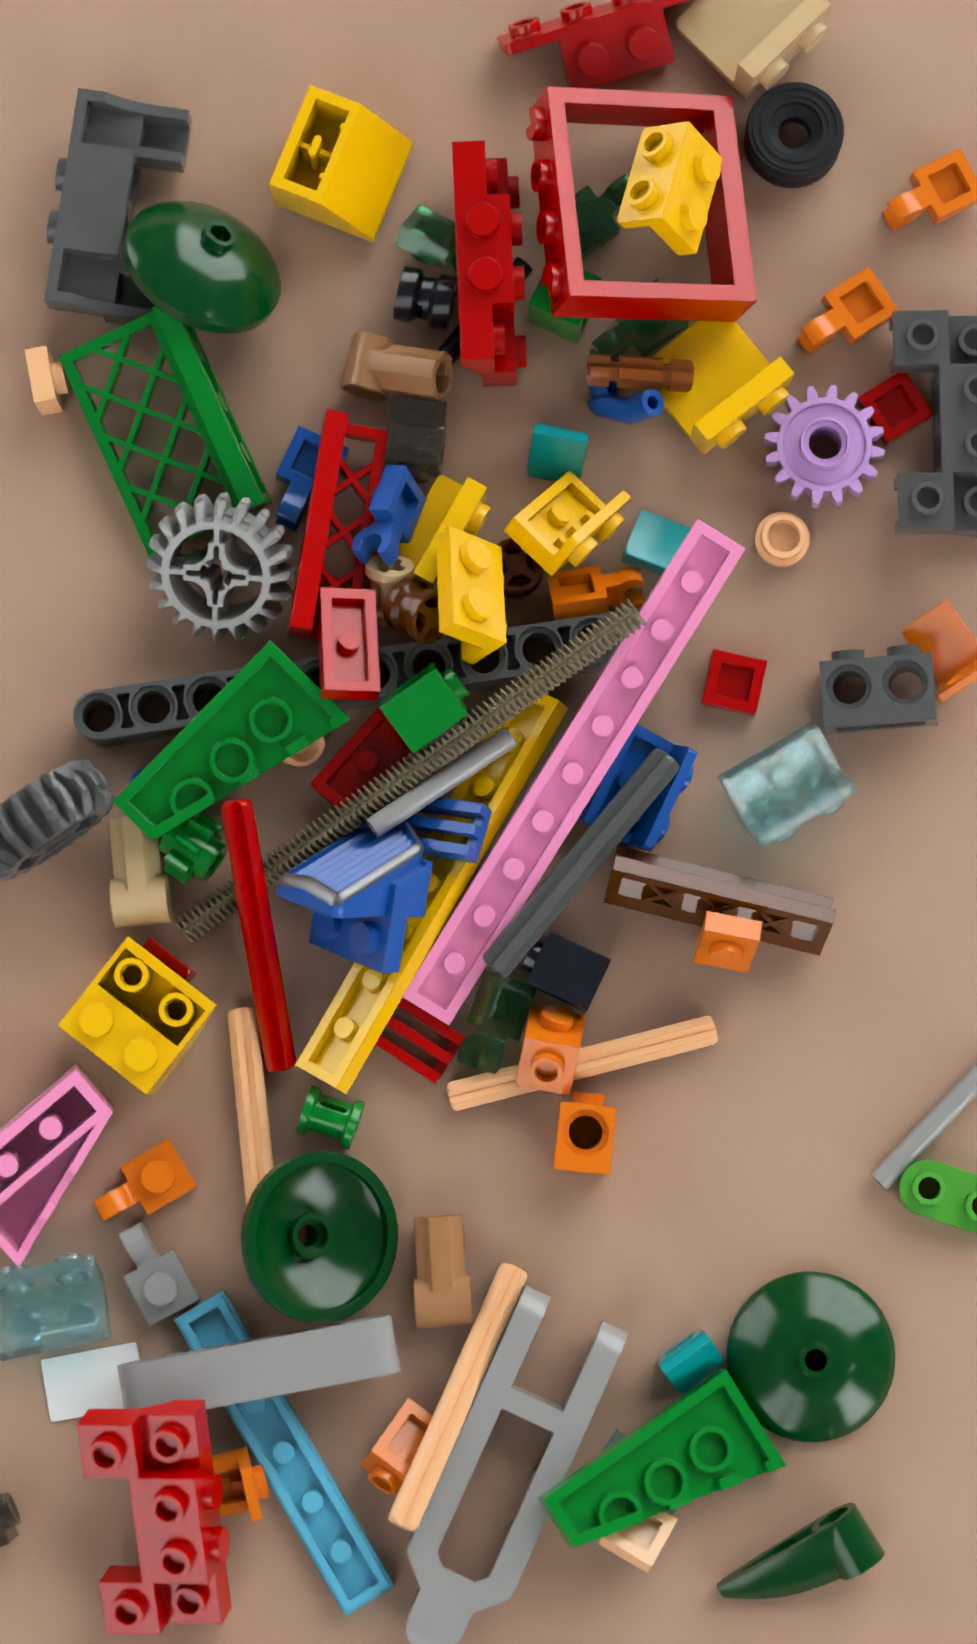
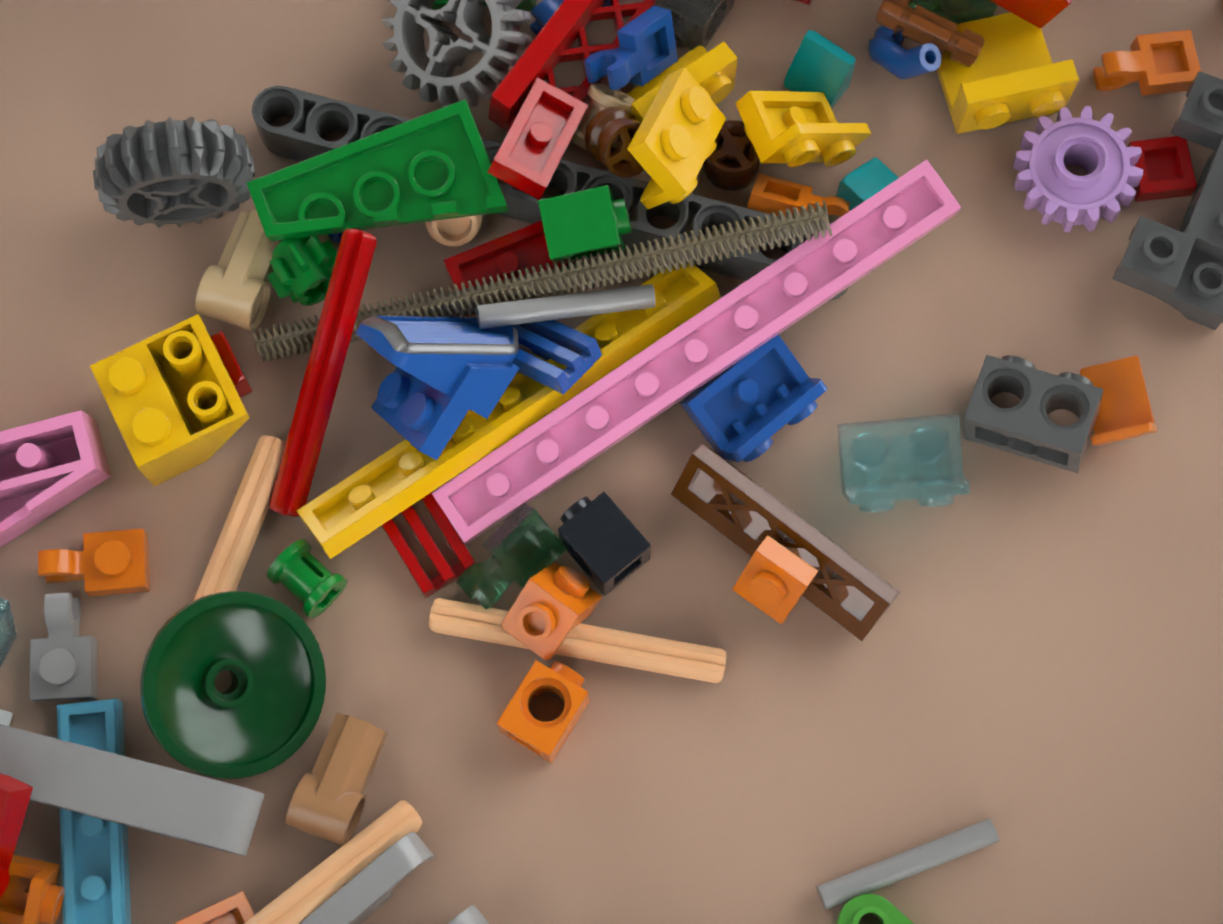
camera: 25 degrees right, 10 degrees down
(581, 862) = (665, 440): dark grey axle -> none
(734, 683) = (893, 349): red tile -> none
(782, 539) = (999, 238): light nougat plate -> none

